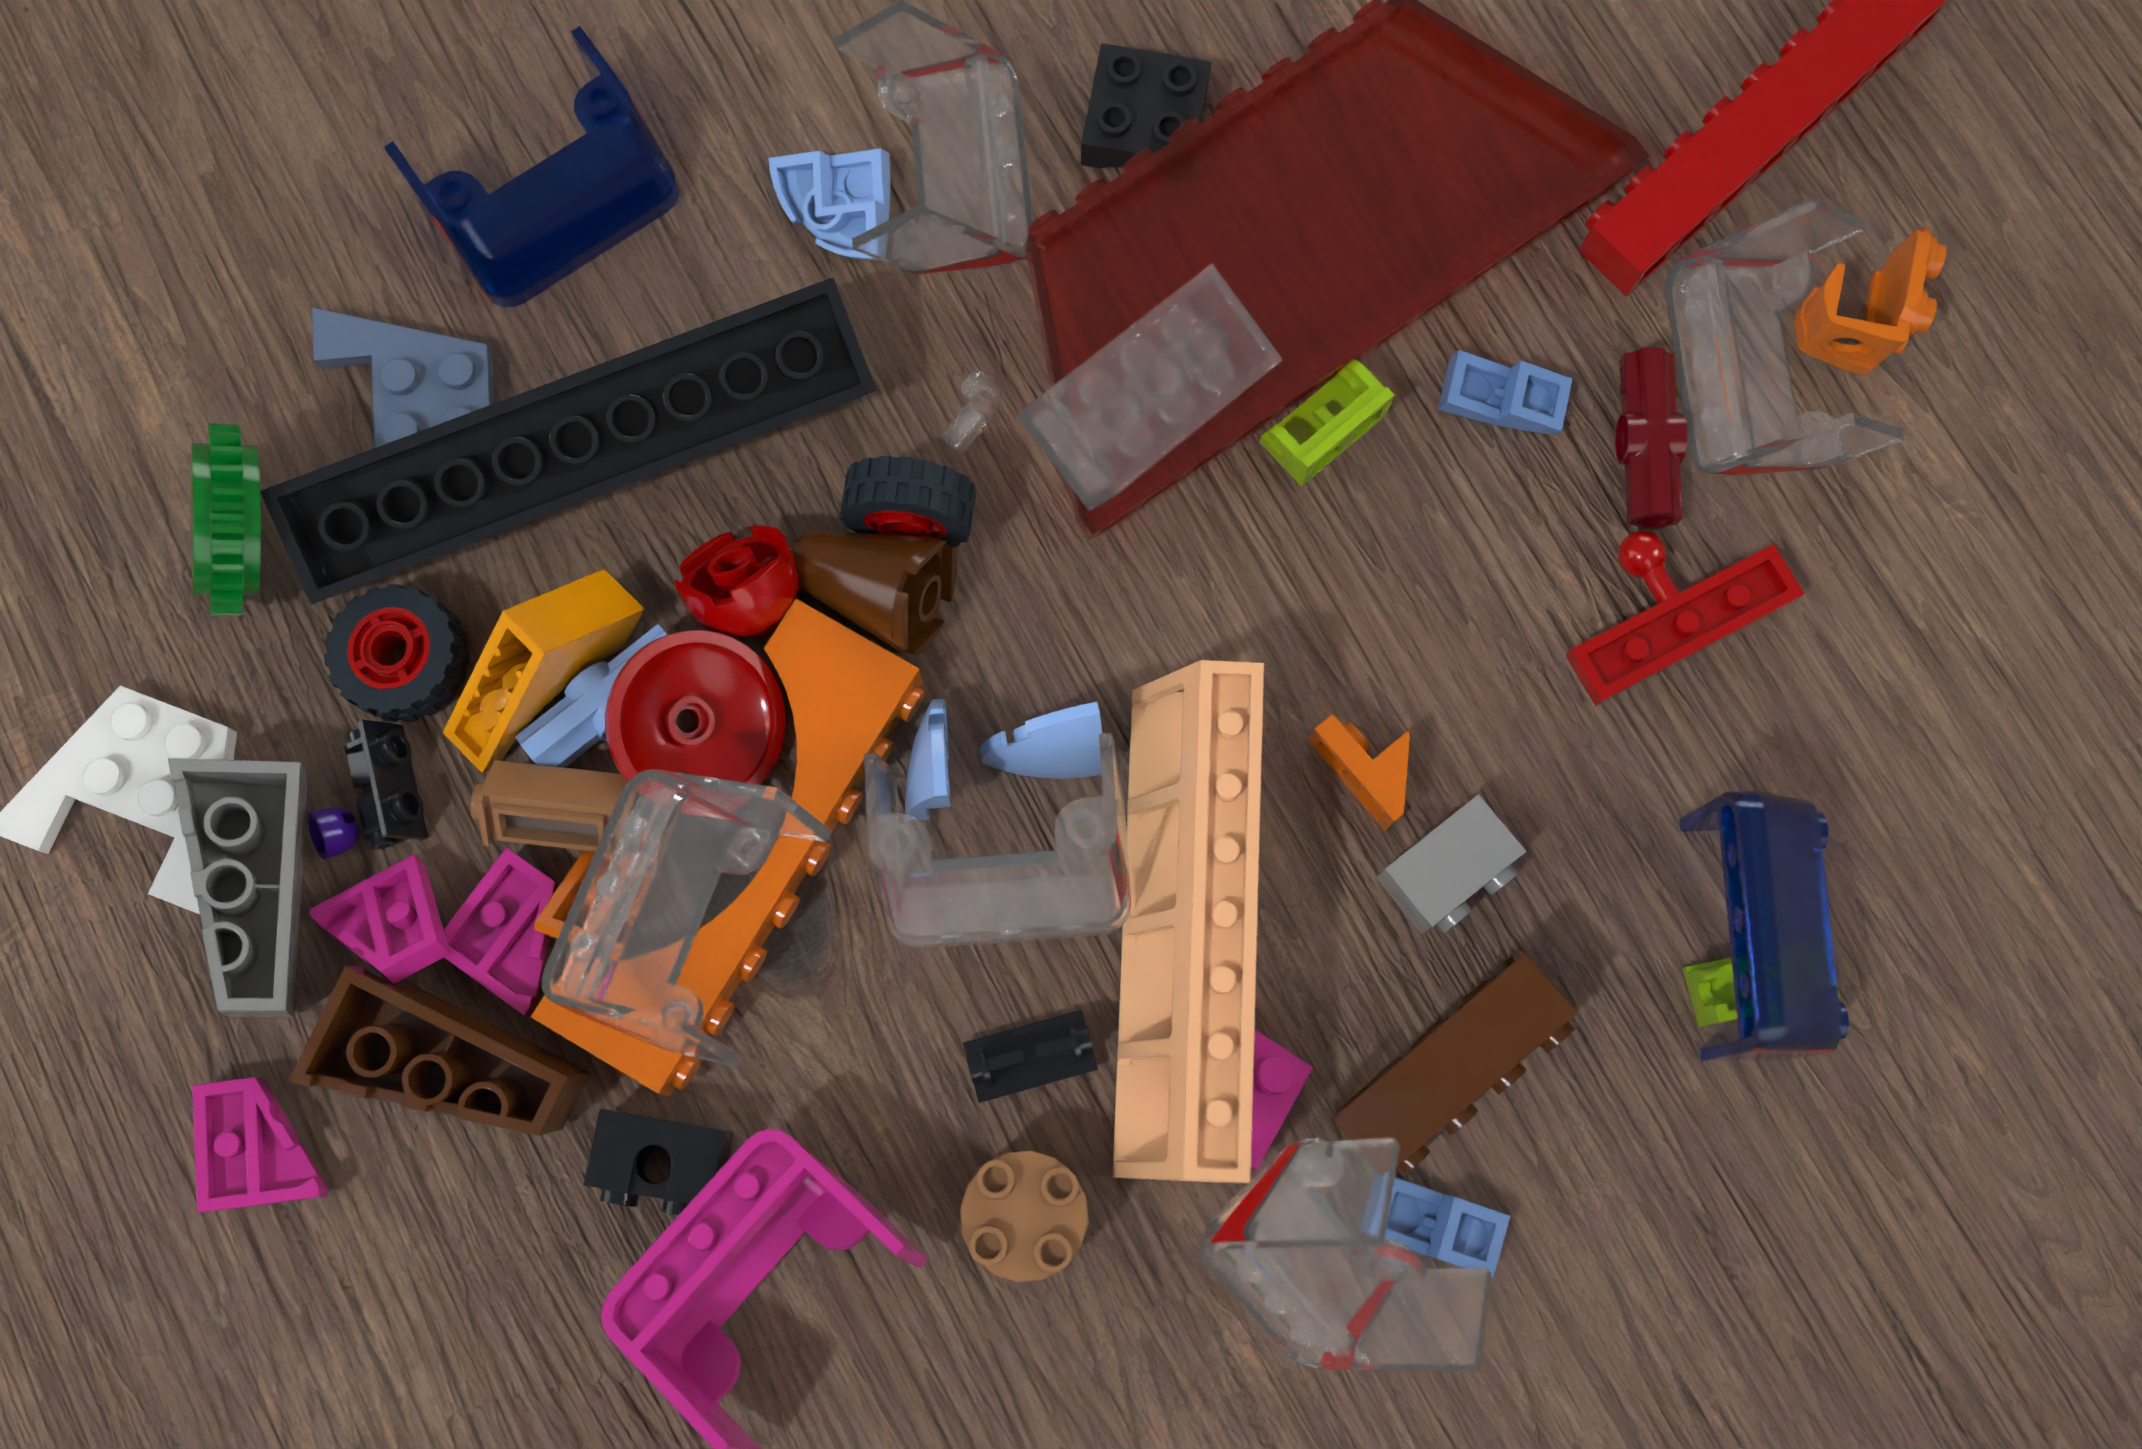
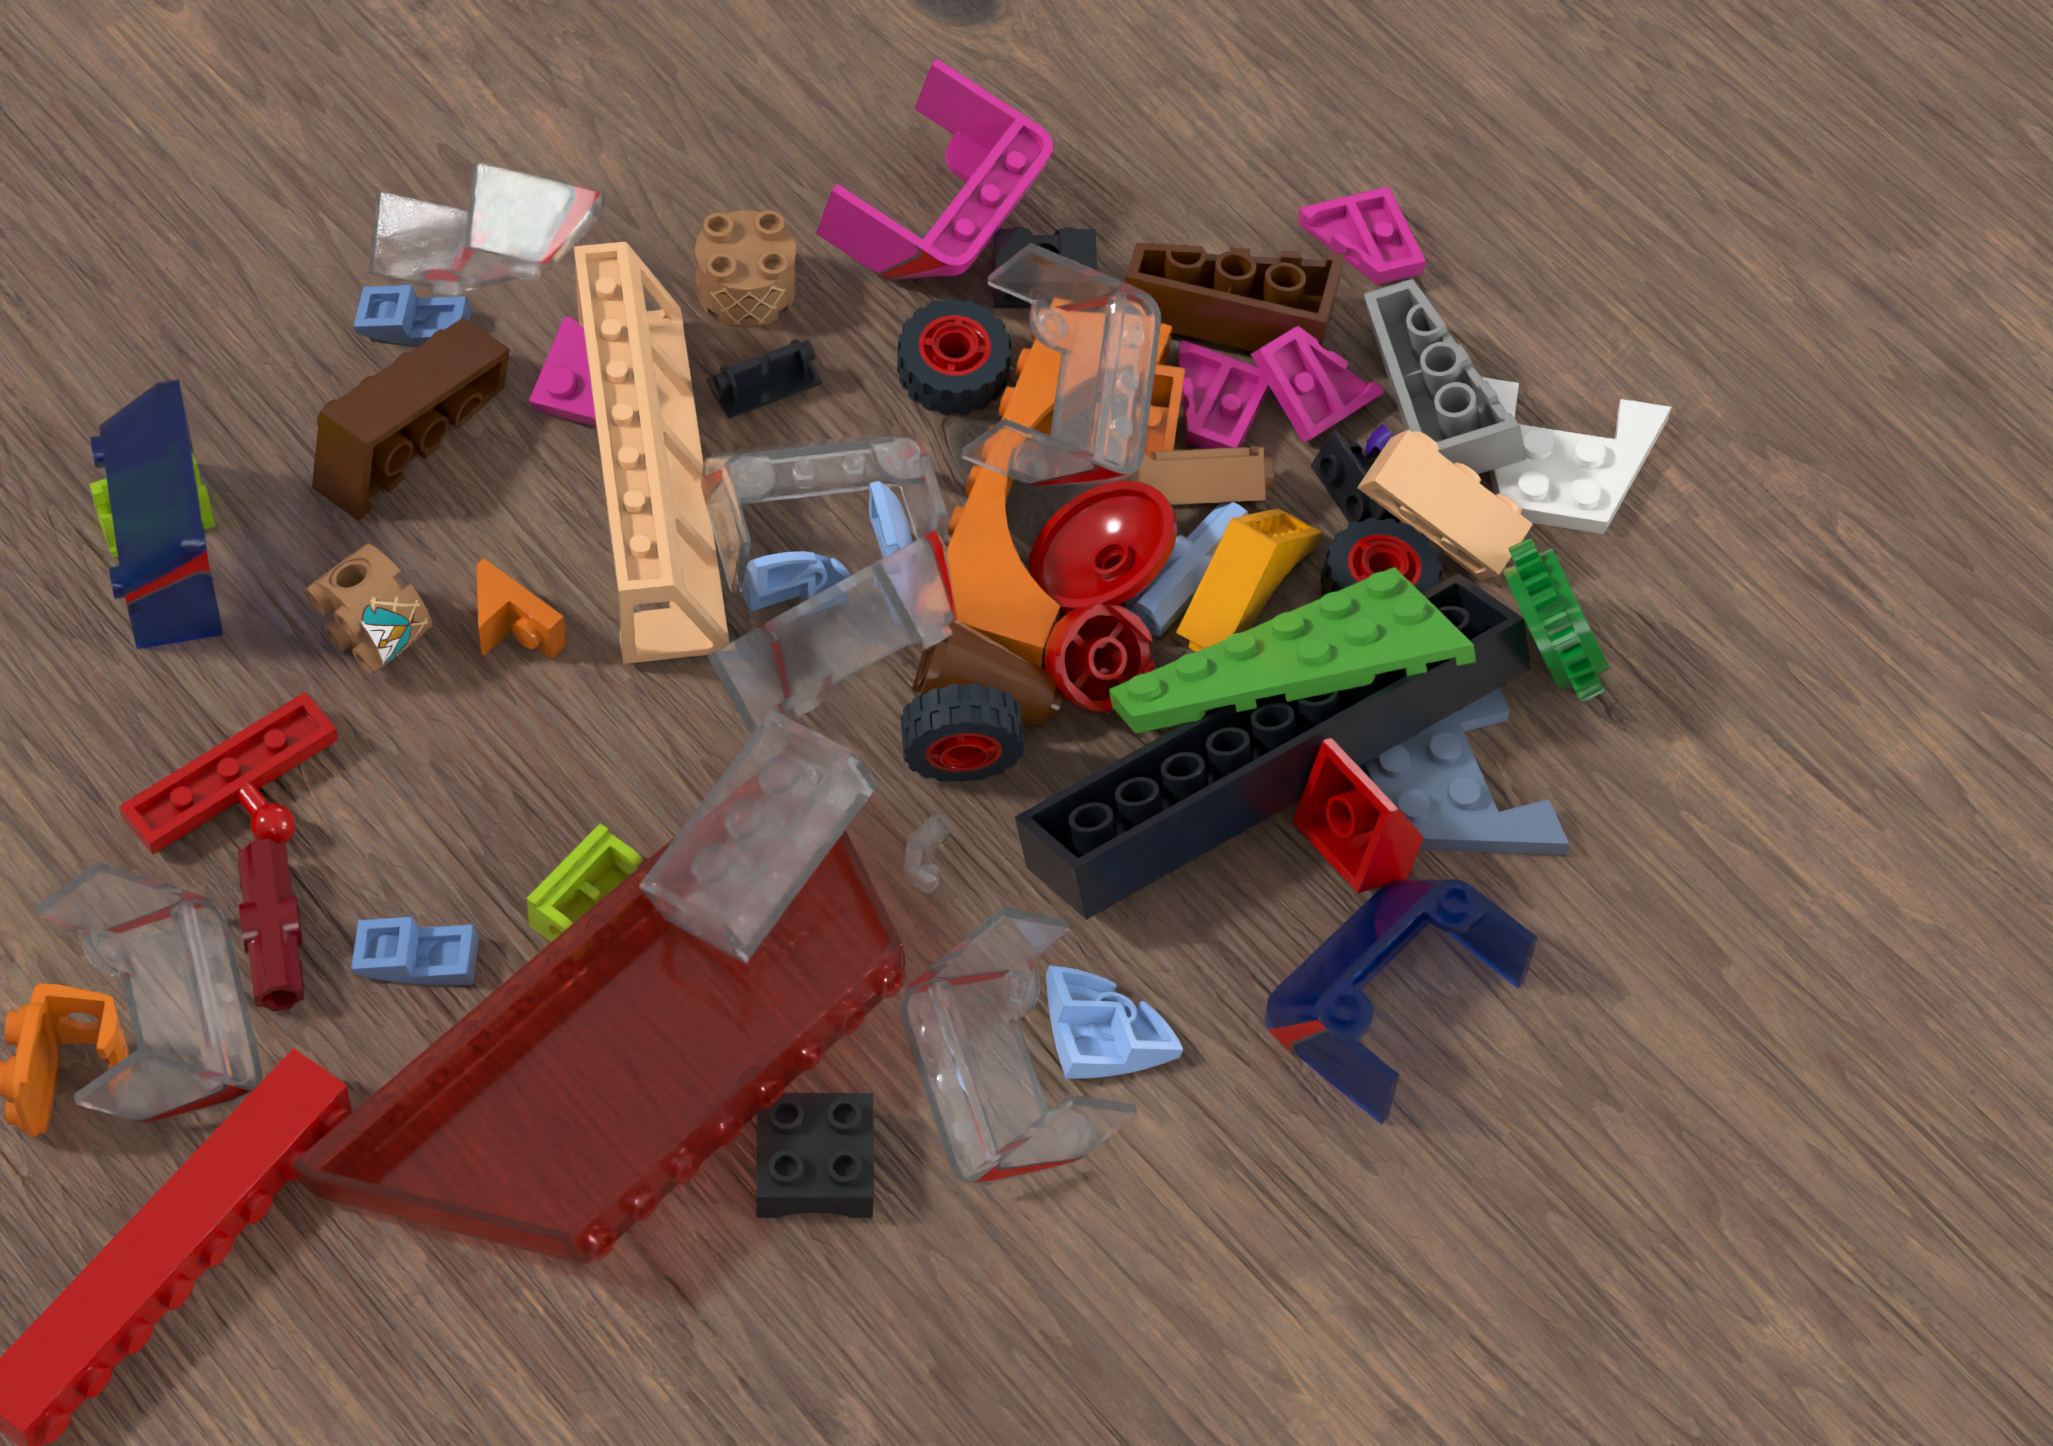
camera: 165 degrees right, 20 degrees down
(293, 697) = (1445, 504): none -> light nougat brick
(482, 521) = (1301, 653): none -> bright green wing
(517, 327) = (1355, 822): none -> red slope
(780, 1009) = (948, 382): none -> black wheel
(1000, 659) = (840, 632): none -> clear windscreen
(1451, 865) = (436, 545): light grey brick -> none
(1530, 774) = (369, 608): none -> medium nougat brick

